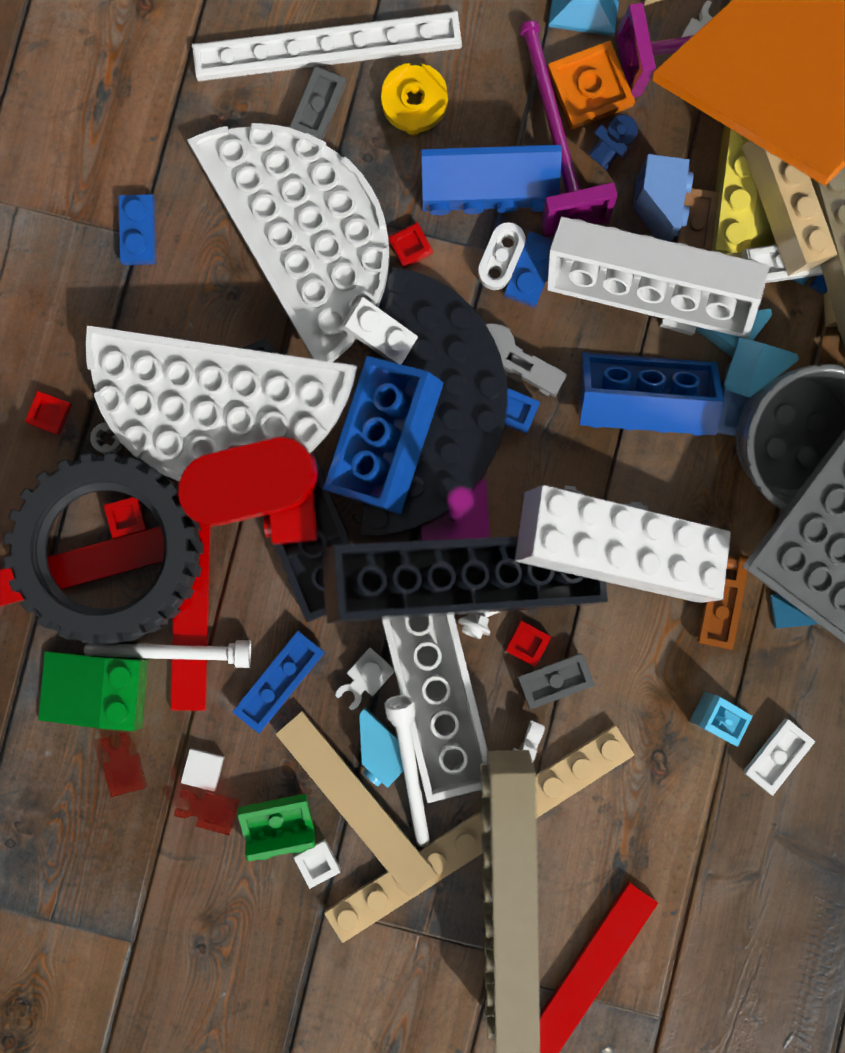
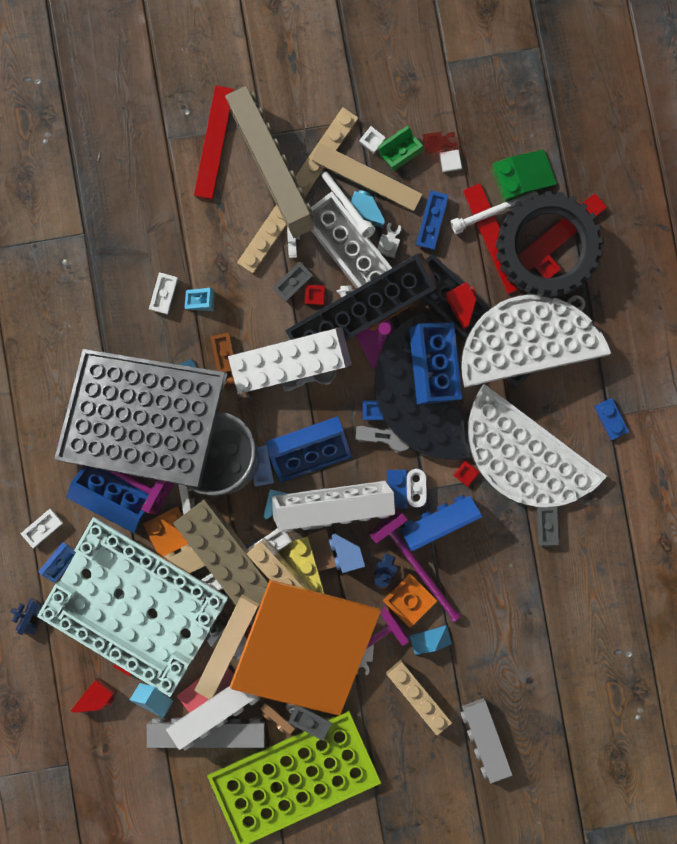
camera: 165 degrees right, 0 degrees up
(48, 413) = (611, 304): red tile -> none
(124, 771) = (489, 143): clear red plate -> none
(247, 481) = (492, 306): red tile -> none
(327, 46) = (557, 561): white tile -> none
(379, 331) = (461, 416): white plate -> none
(416, 79) = (489, 557): yellow plate -> none
(756, 366) = (260, 485): medium azure slope -> none

